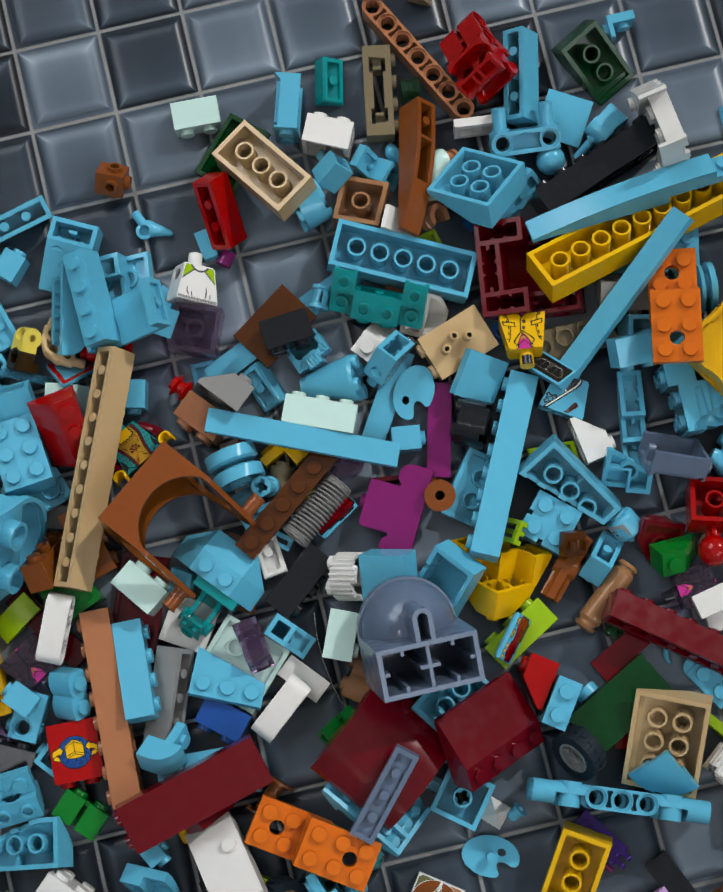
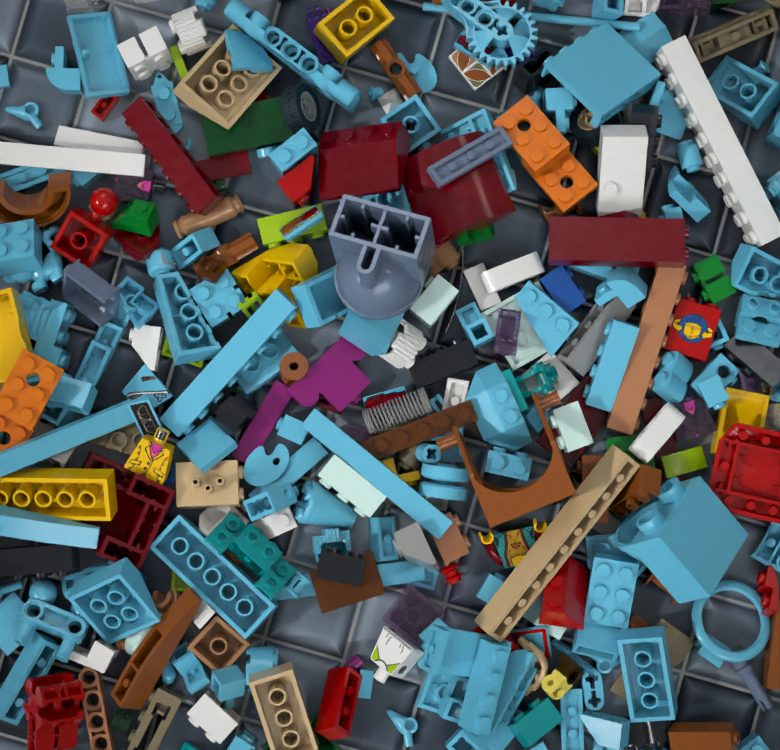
camera: 150 degrees left, 5 degrees up
(28, 297) = (535, 721): none -> teal brick
(184, 520) = (508, 465): none -> medium azure brick
(463, 133) = (101, 655): none -> white slope
(523, 853) = (388, 58): none -> dark orange piece

